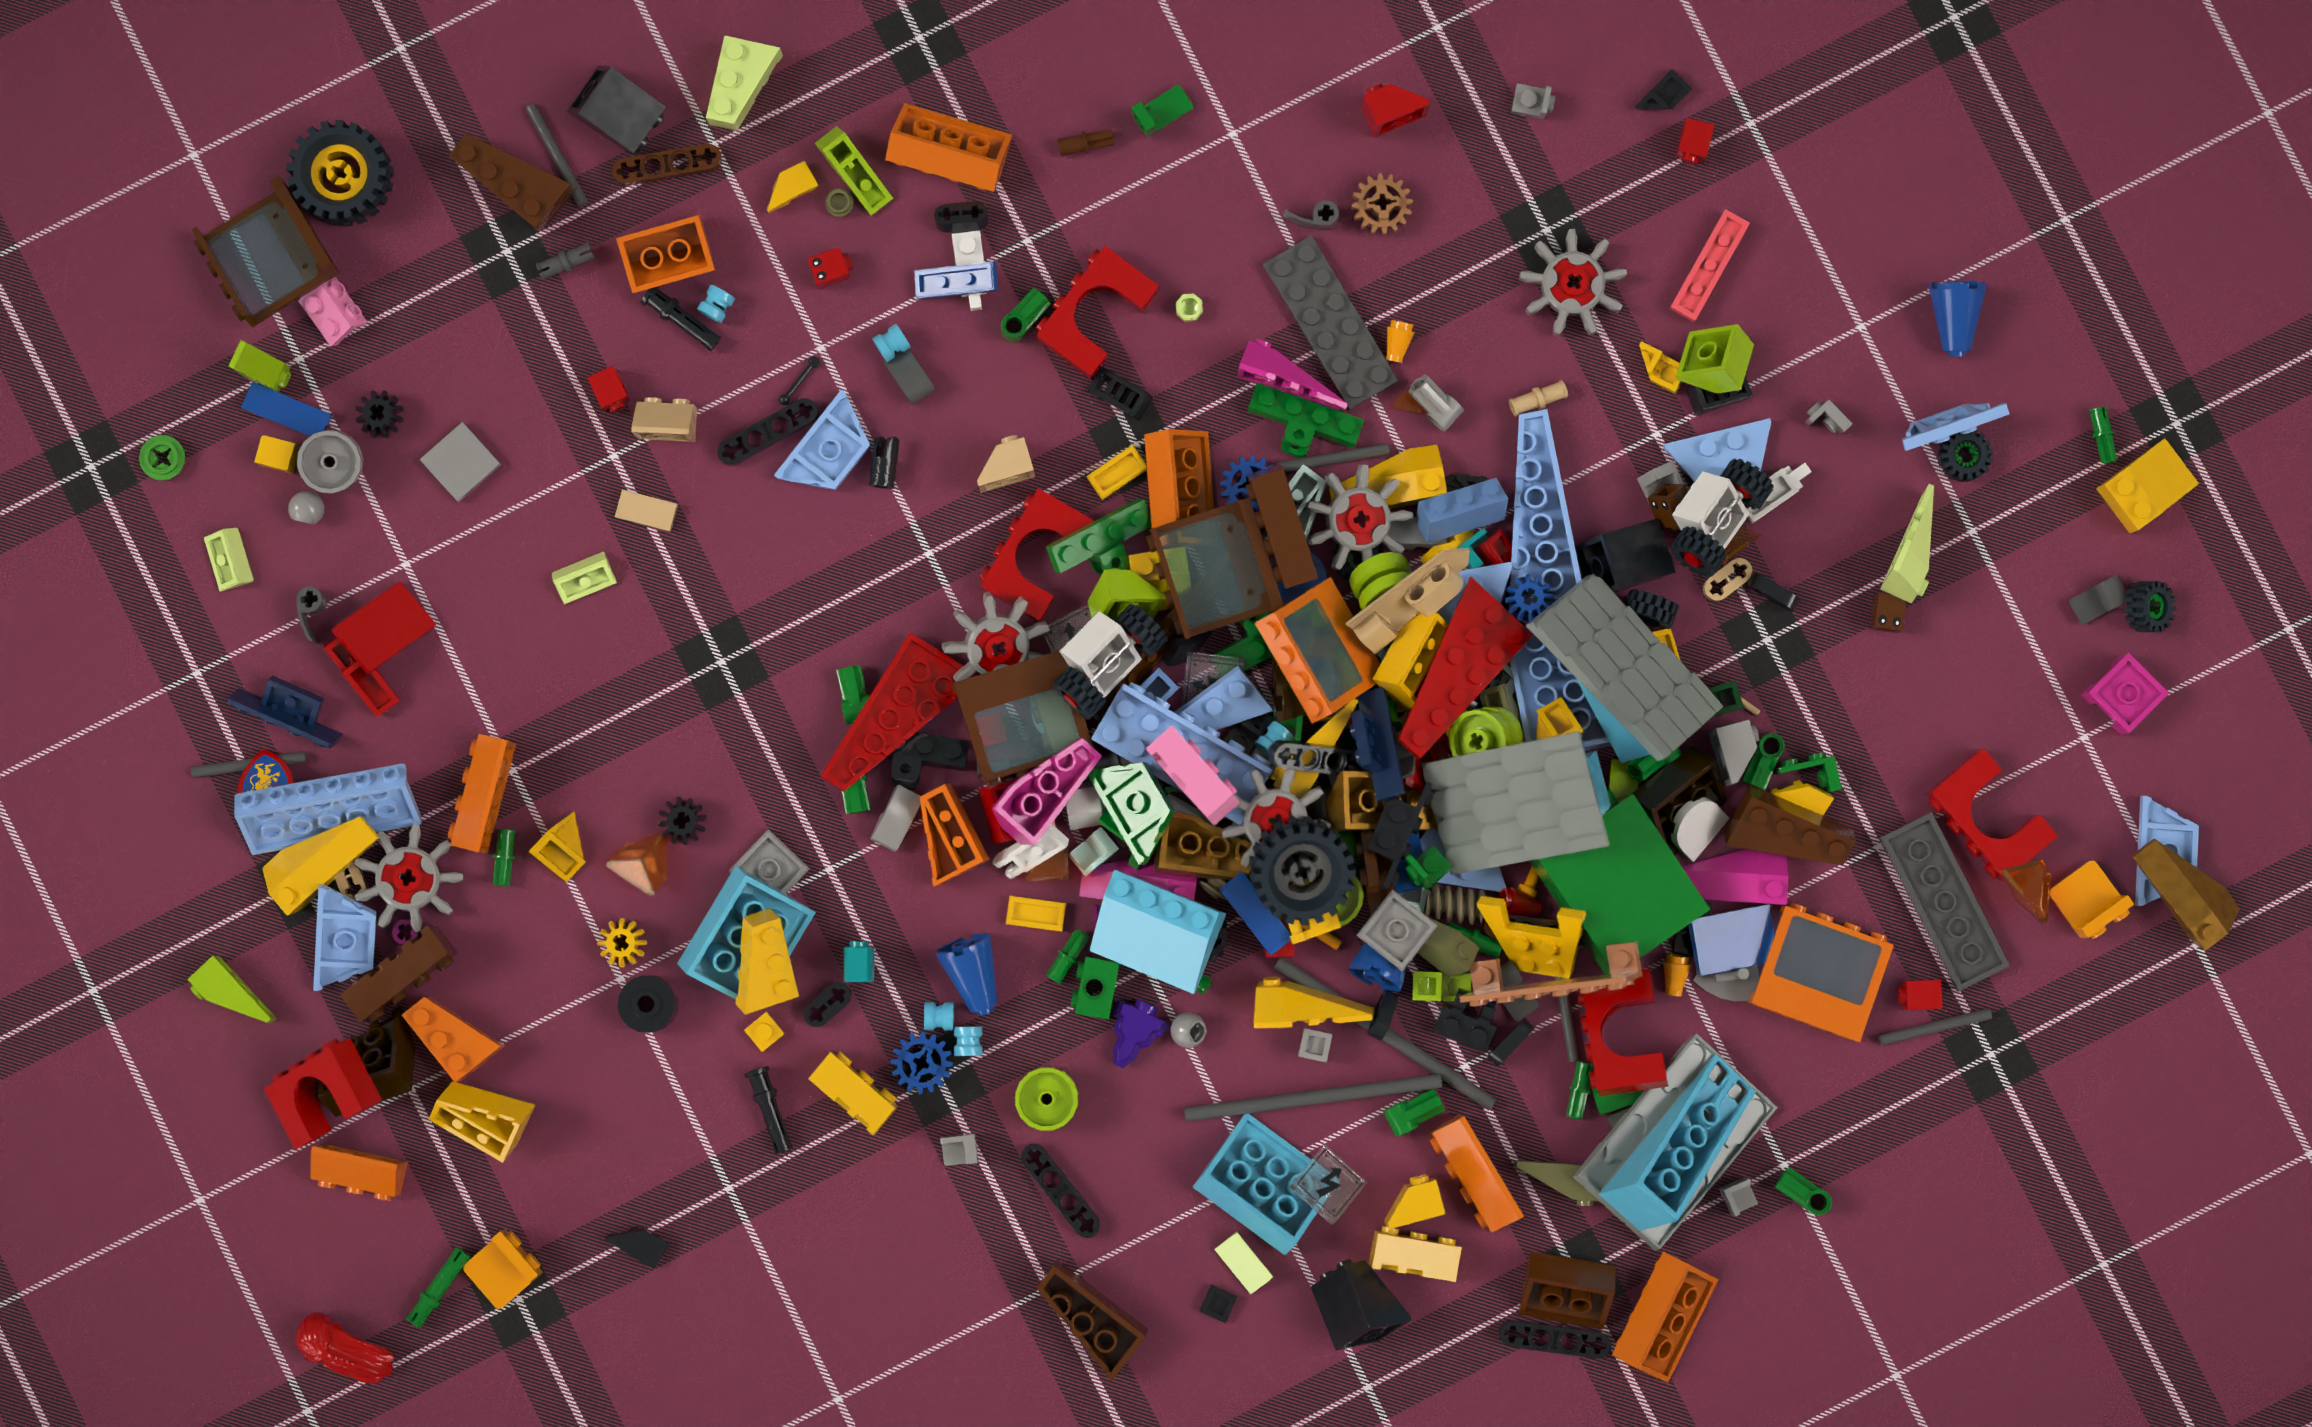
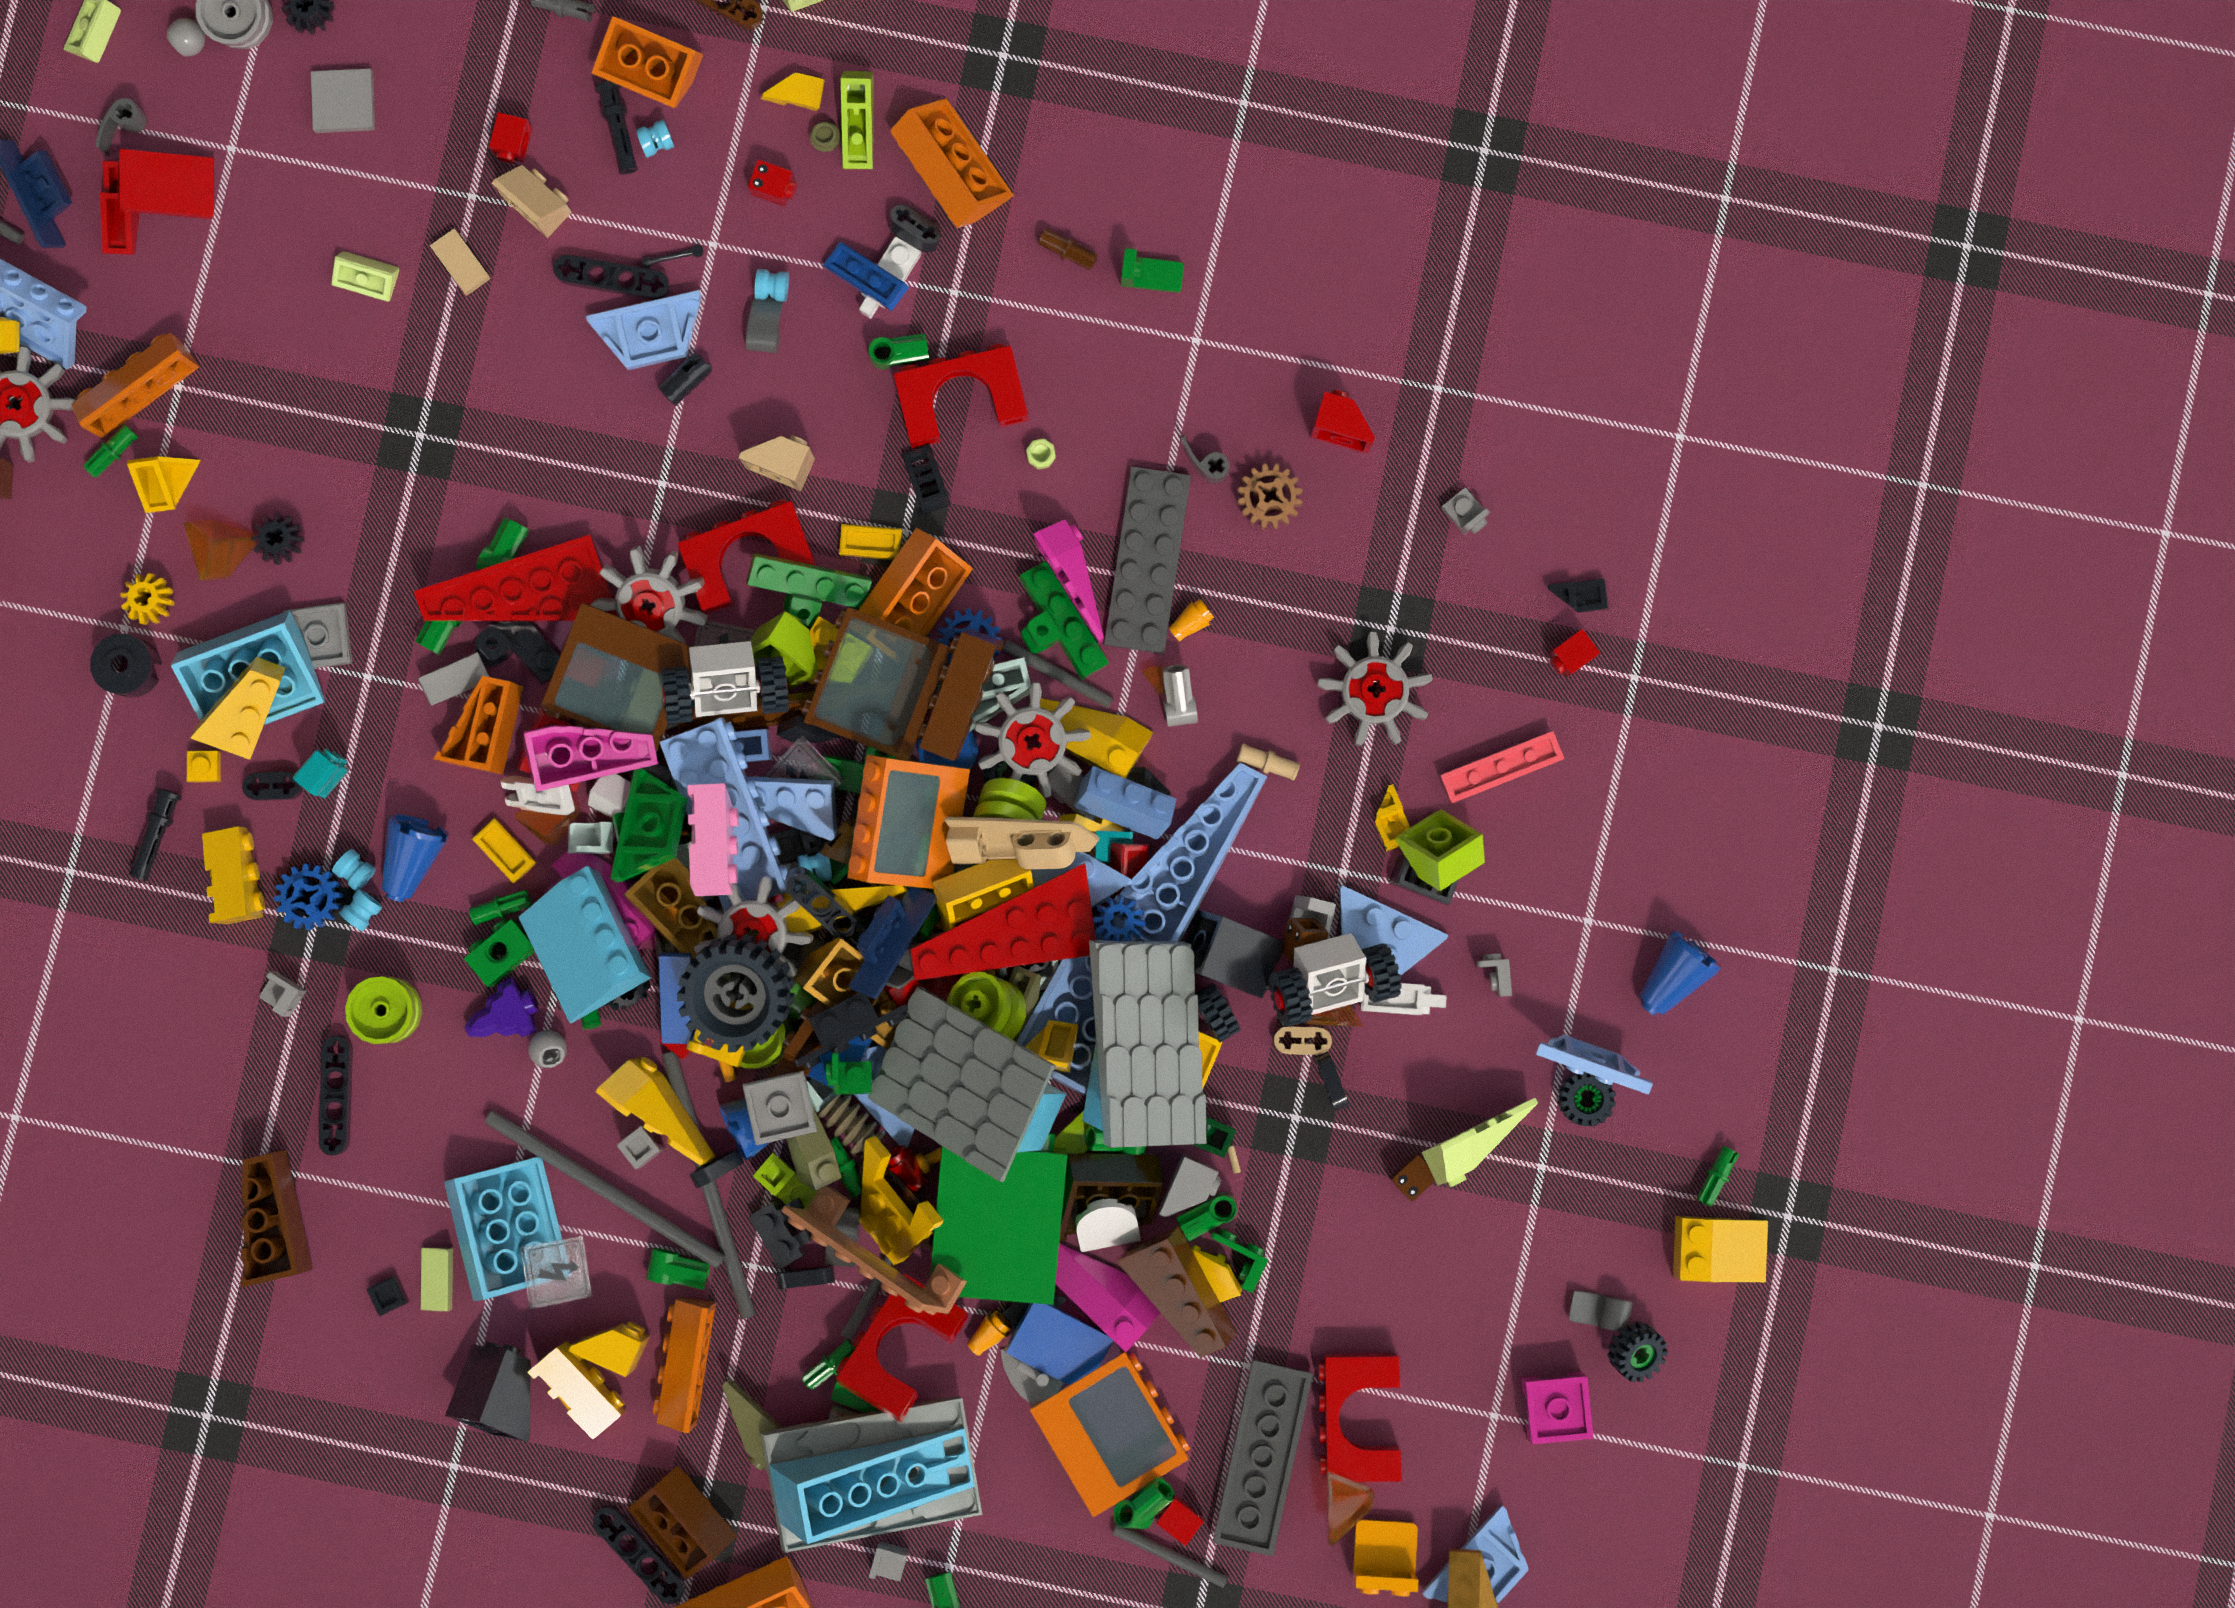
camera: 40 degrees right, 0 degrees up
(1888, 1002) = (1144, 1505): none -> green piece

